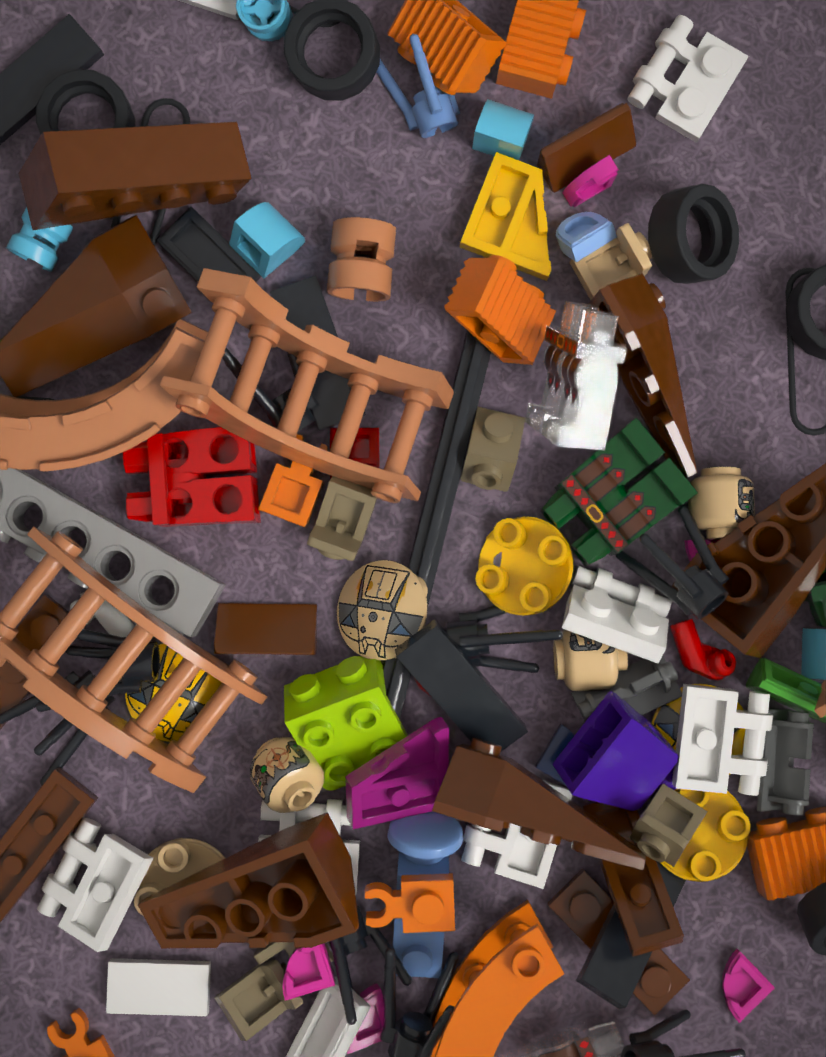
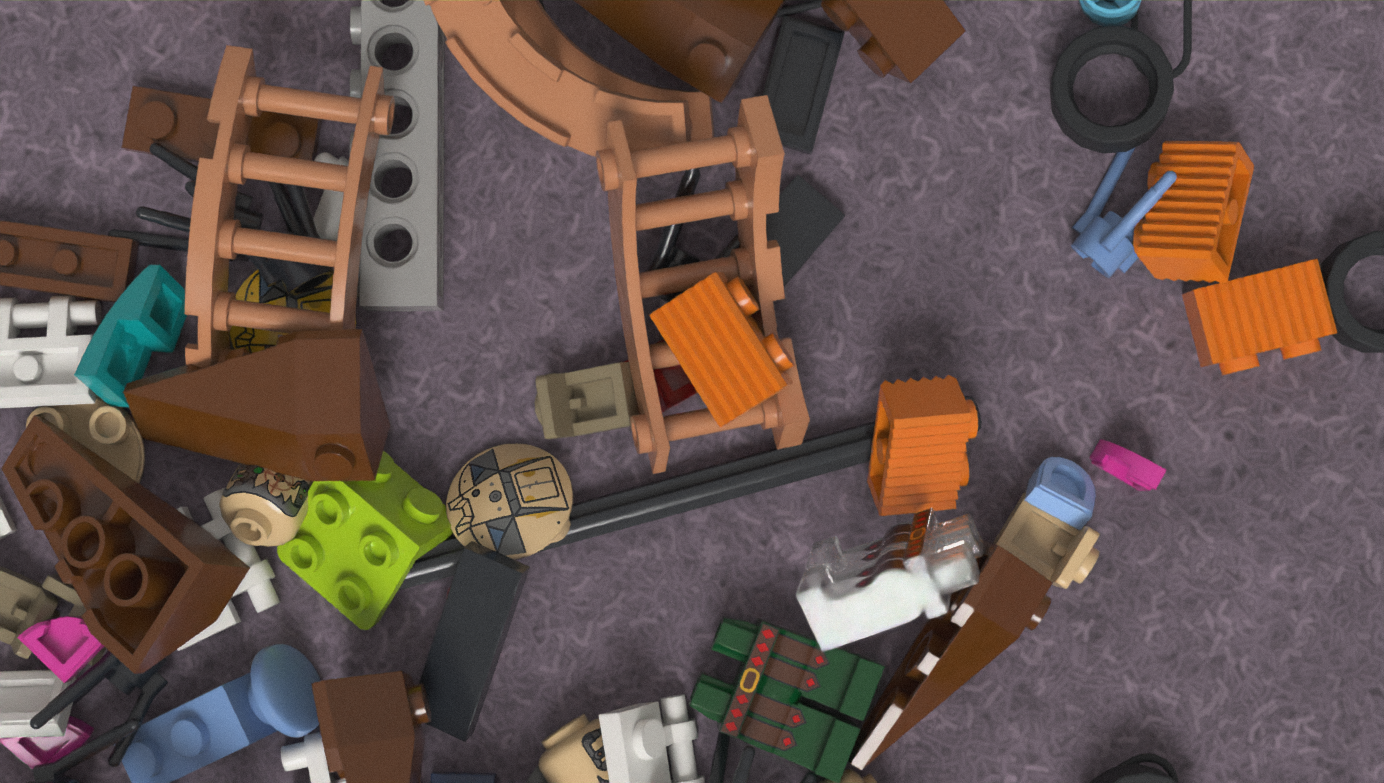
camera: 60 degrees right, 0 degrees up
(115, 797) = (140, 322): none -> teal slope
(179, 482) = (524, 197): red hips -> none
(231, 724) = (289, 408): none -> reddish brown wedge
(264, 238) = (854, 136): medium azure brick -> none
(266, 629) = (418, 385): reddish brown slope -> none
(292, 492) = (587, 327): orange plate -> none
(348, 272) = (867, 257): nougat wheel -> none
(359, 402) = (723, 347): none -> orange brick
(400, 779) = (332, 628): magenta wing -> none
(422, 903) = (207, 728): orange plate -> none
(475, 640) = (534, 624): black plant -> none
(493, 449) = (761, 525): dark tan bracket -> none
(502, 130) = (1129, 332): medium azure brick -> none
(511, 217) = (1034, 398): yellow wing -> none
(532, 569) = (650, 645): yellow dish -> none
(585, 146) = (1165, 440): reddish brown slope -> none
(701, 85) = (1311, 528): white plate -> none
(717, 227) = (1147, 646): black tyre -> none

